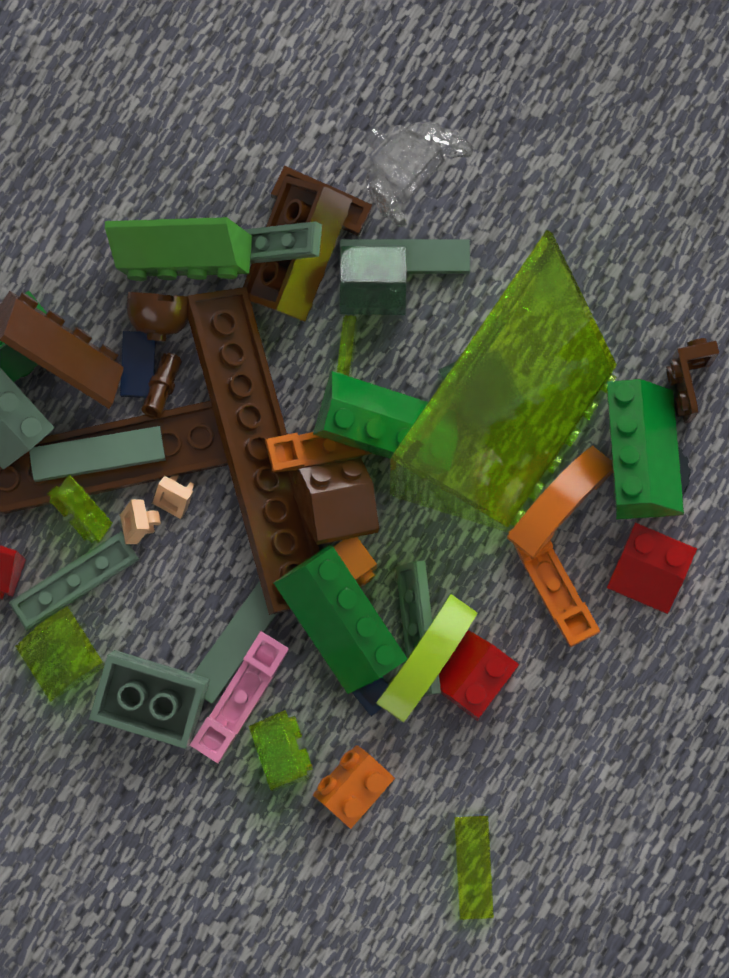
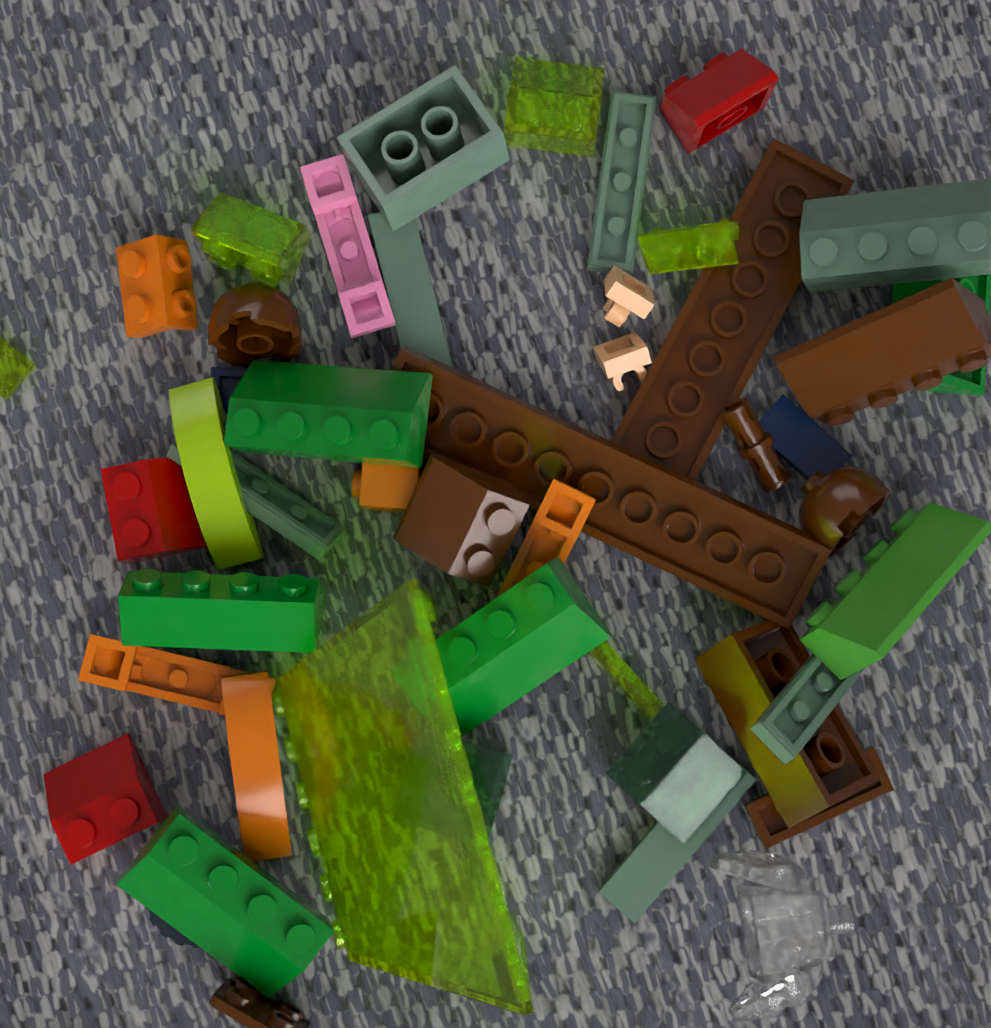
camera: 130 degrees right, 5 degrees up
(97, 454) = (736, 312): sand green tile -> none
(325, 709) = (254, 324): none -> reddish brown cylinder
(496, 582) = (221, 611): none -> green slope

